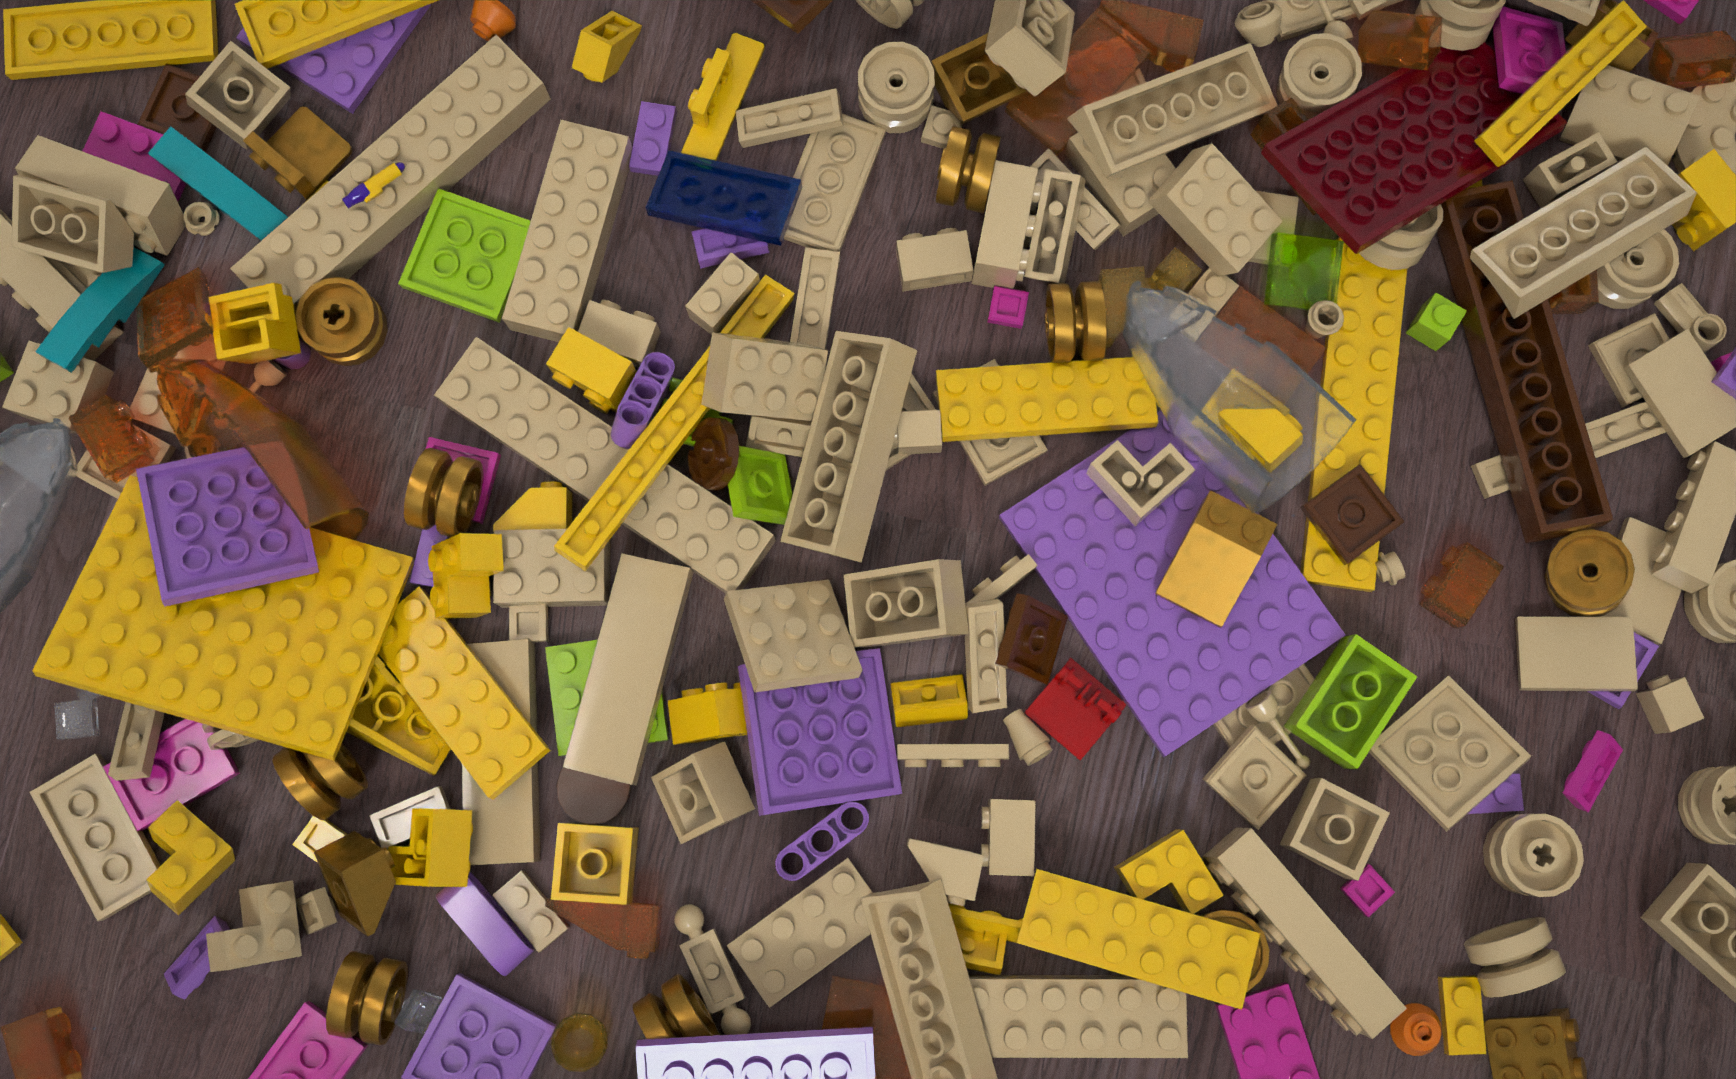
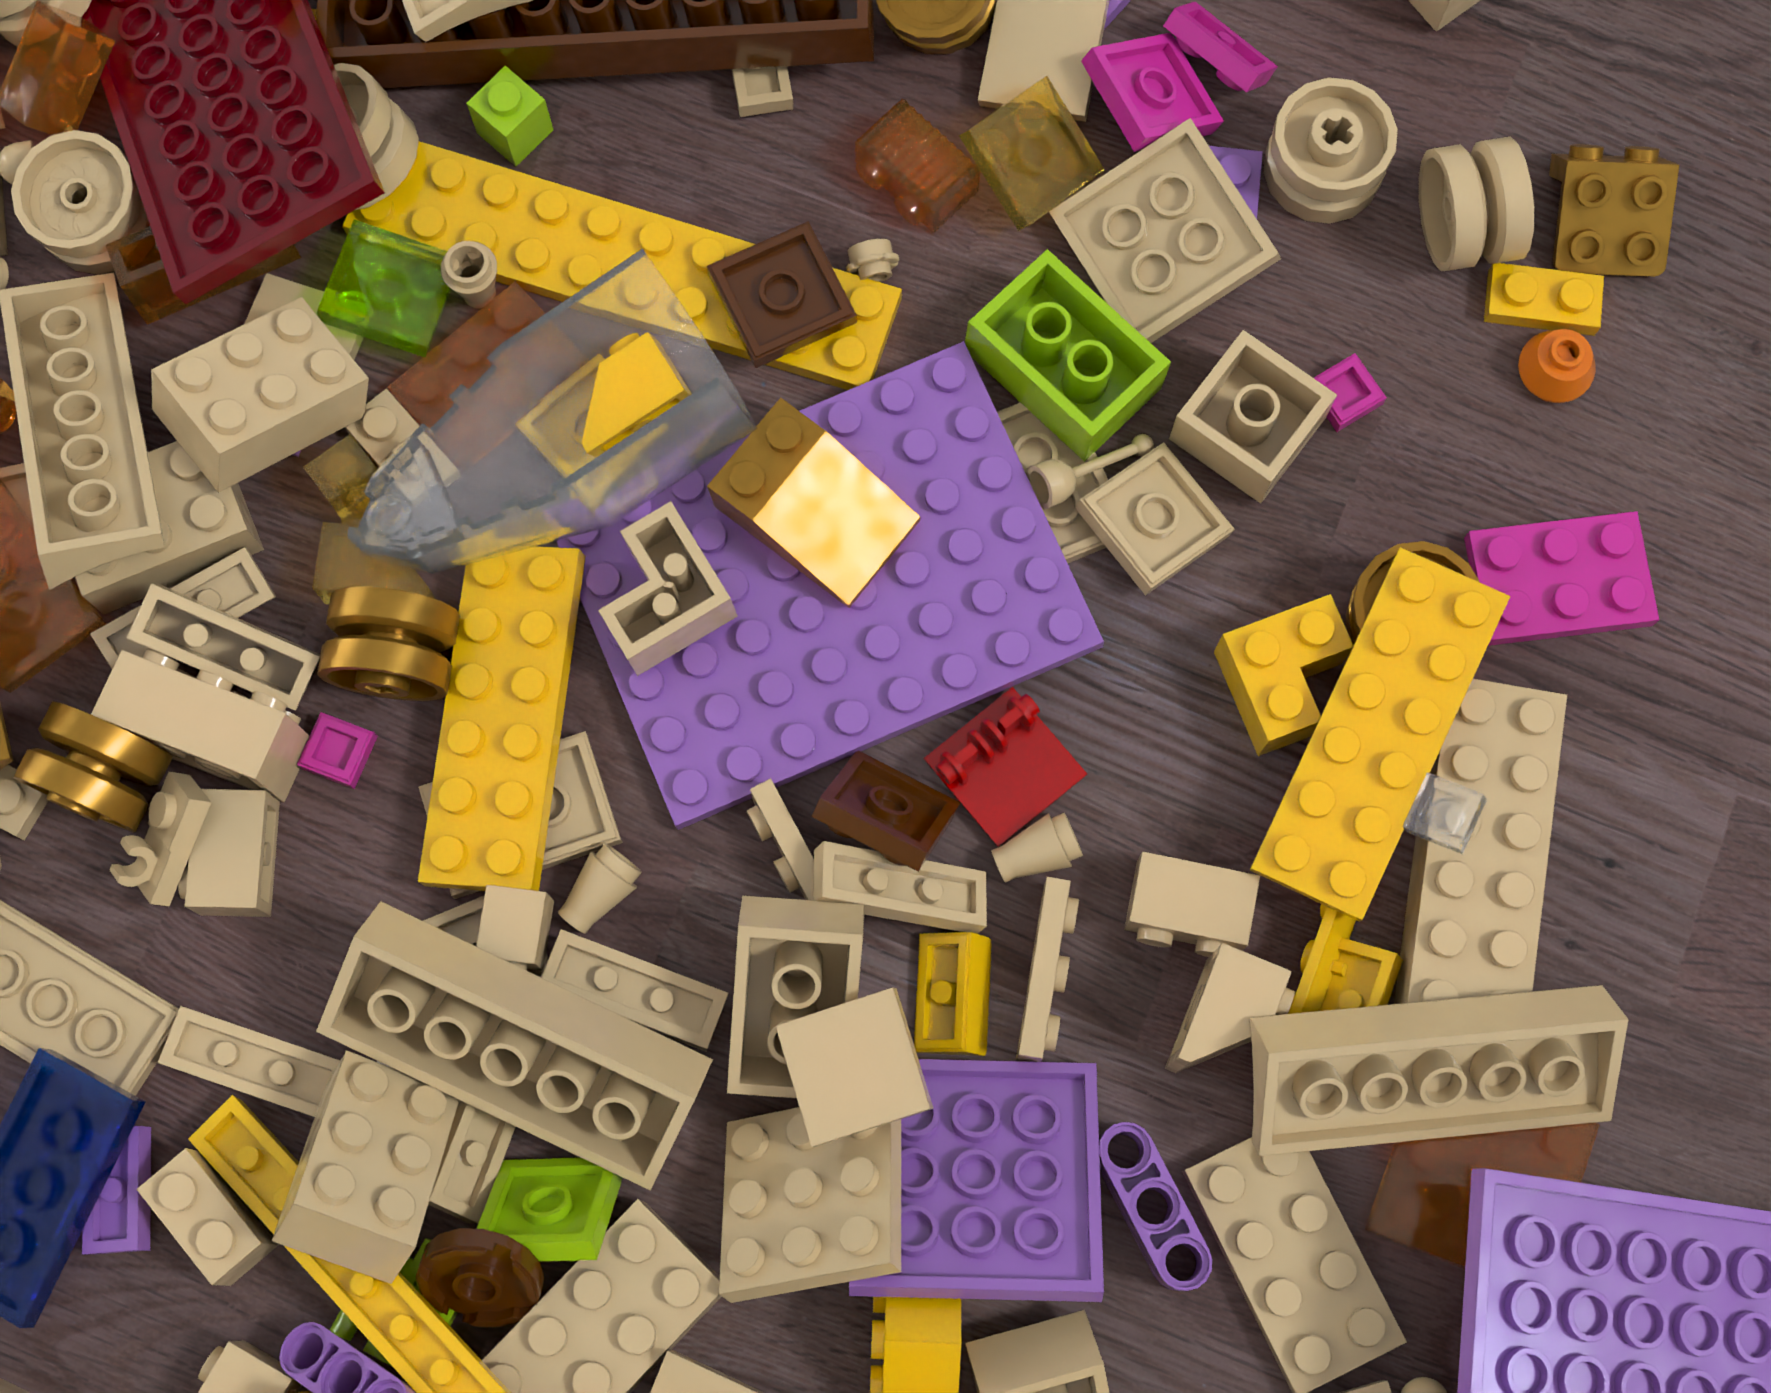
camera: 80 degrees left, 5 degrees down
(869, 644) = (854, 1067): none -> tan tile
(896, 509) = (636, 989): none -> tan plate
(928, 222) = (173, 828): none -> tan plate
(954, 477) = (599, 887): none -> tan cone
(1092, 985) = (1444, 813): none -> clear plate
(1304, 933) = (1399, 491): tan brick -> none
(1485, 657) = (1032, 153): none -> clear yellow plate
(1549, 728) = (1150, 88): none -> dark pink plate

